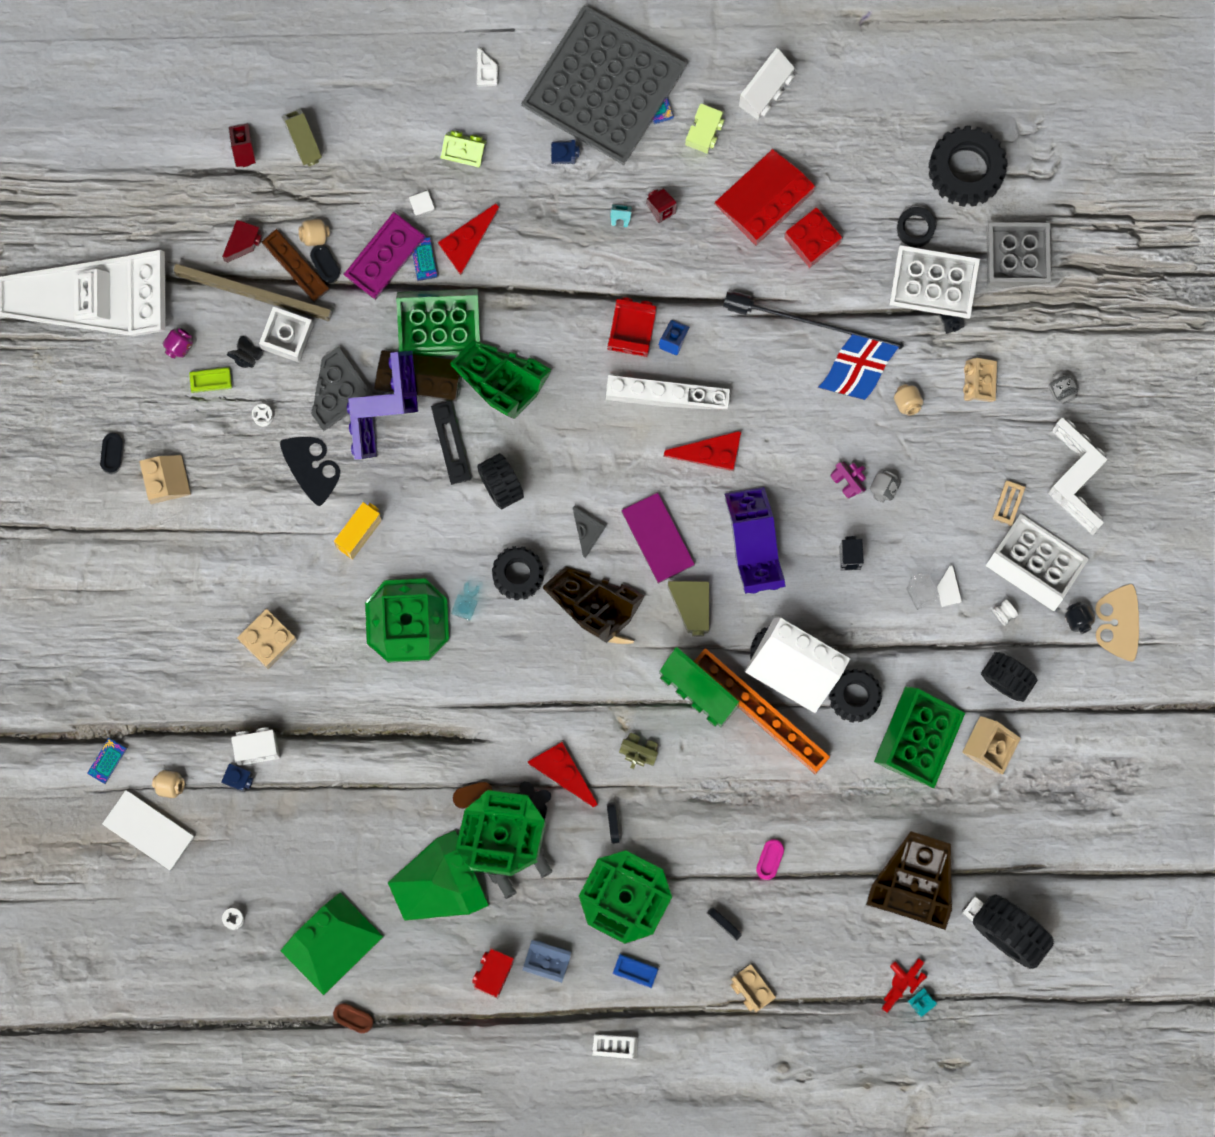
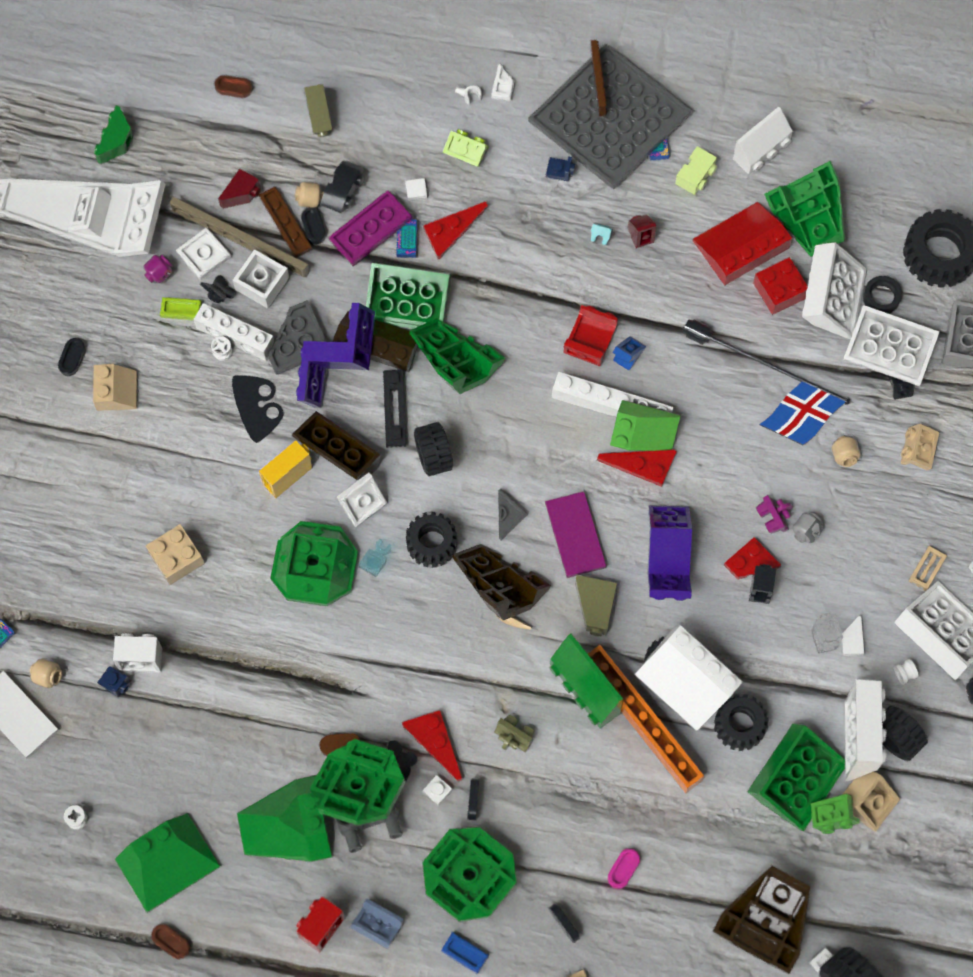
camera: 15 degrees right, 10 degrees down
(98, 208) = (115, 137): none -> green slope
(206, 126) = (233, 86): none -> copper tile
(219, 316) = (203, 253): none -> white tile
(242, 145) = (261, 108): dark red slope -> none
(271, 394) = (236, 331): none -> white brick
(346, 218) = (344, 184): none -> black brick
(404, 498) = (337, 446): none -> dark brown slope
(440, 546) = (362, 499): none -> white tile
(448, 86) = (470, 89): none -> white piece
(576, 820) = (437, 790): none -> white plate
(584, 46) = (598, 78): none -> reddish brown tile
(704, 417) = (644, 428): none -> bright green slope
(828, 150) = (811, 208): none -> green wedge
(835, 529) = (750, 555): none -> red wing
(867, 233) = (834, 290): none -> white slope
(959, 768) = (833, 814): none -> bright green bracket
(975, 681) = (864, 729): none -> white slope

